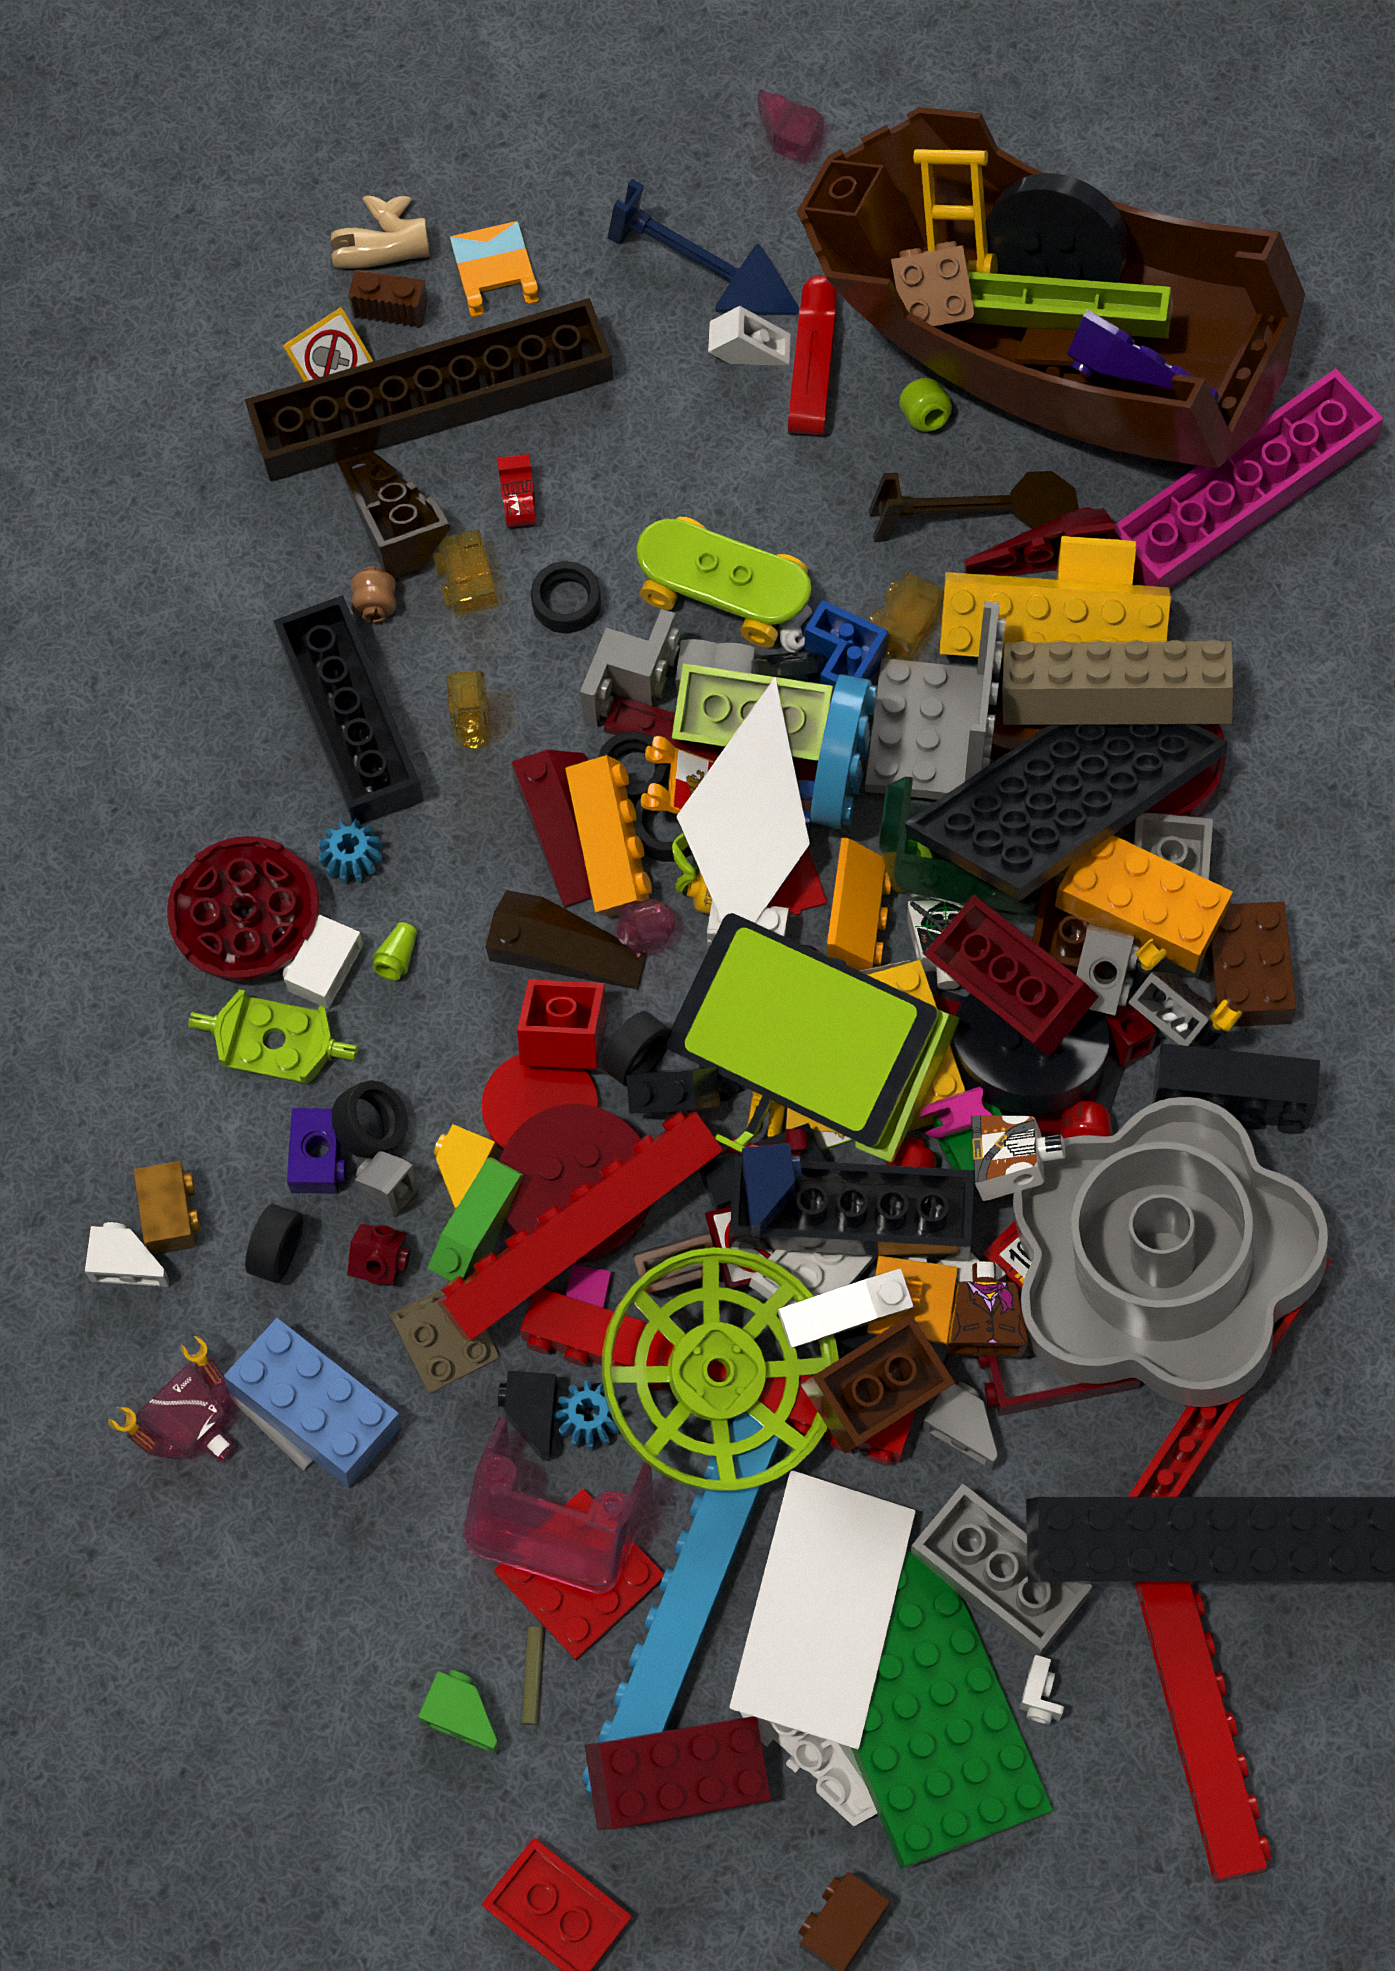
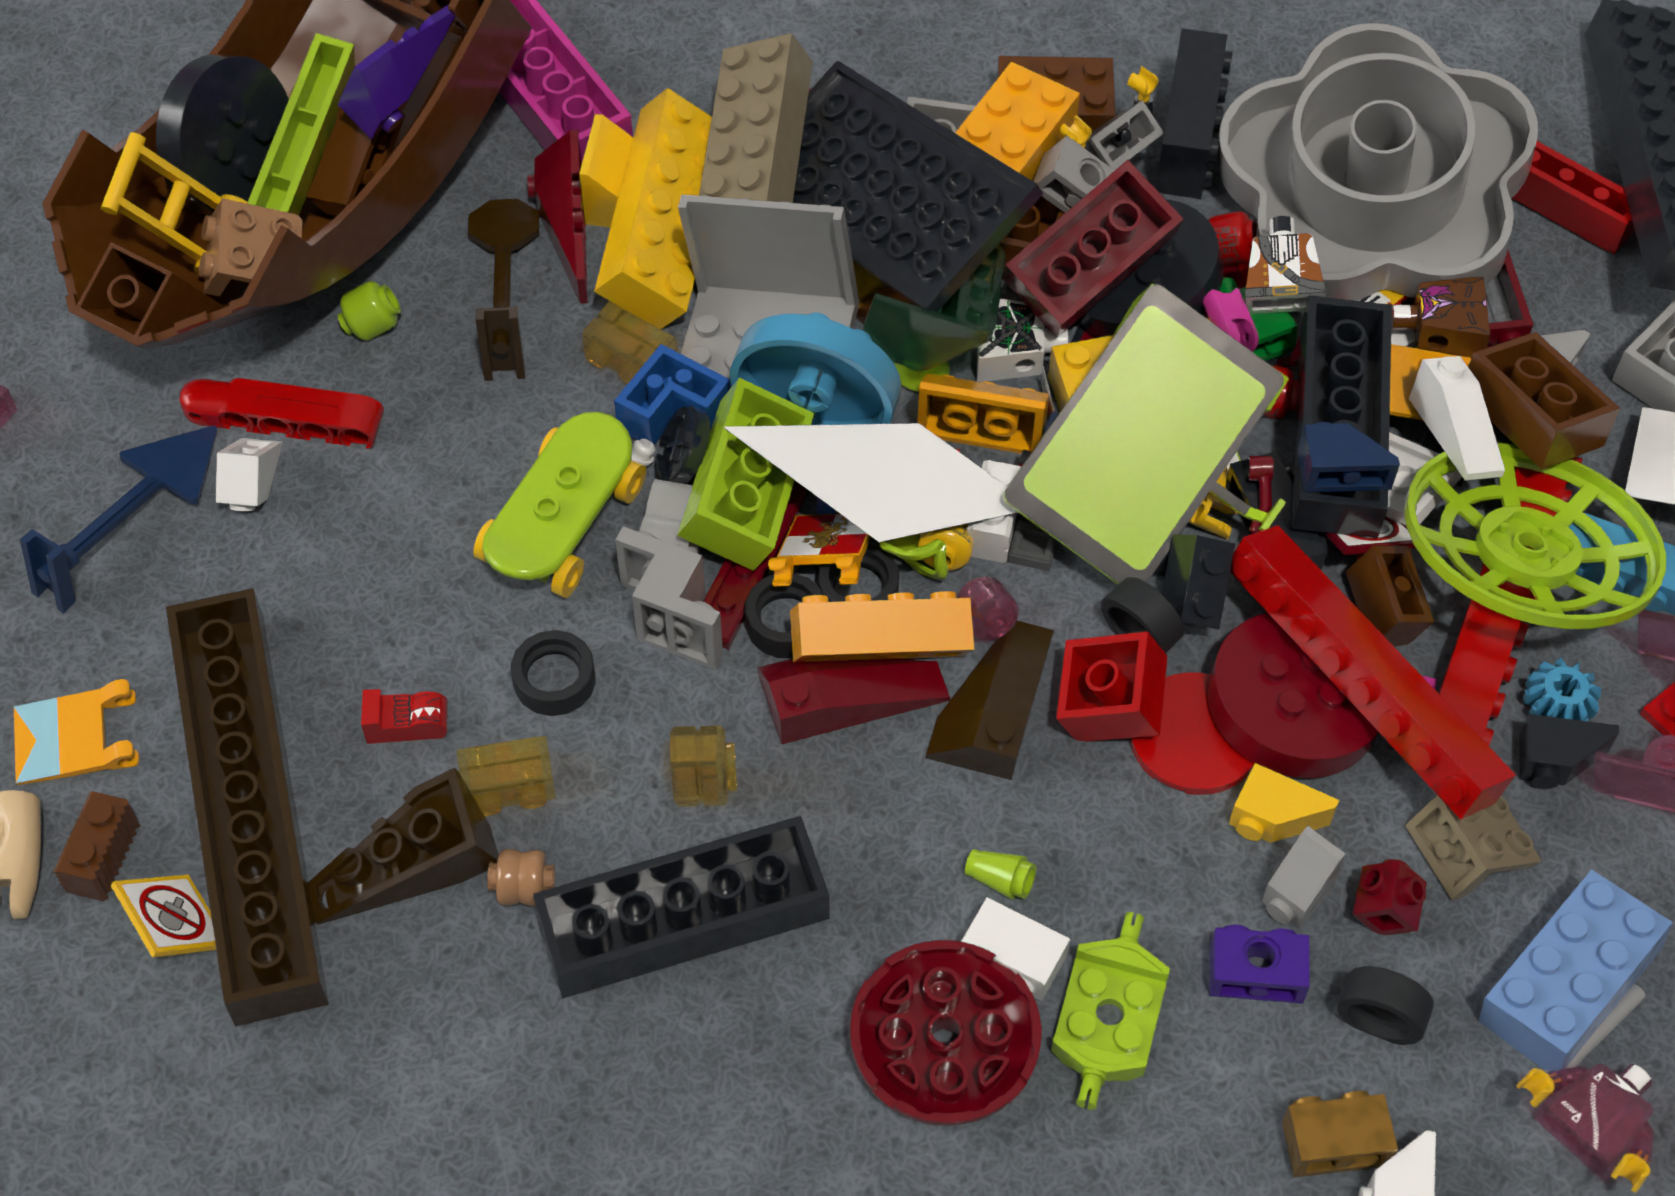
camera: 90 degrees left, 10 degrees down
(365, 847) = (853, 923): dark azure gear -> none
(390, 1109) = (1226, 896): black tyre -> none
(476, 1221) = (1361, 782): bright green slope -> none

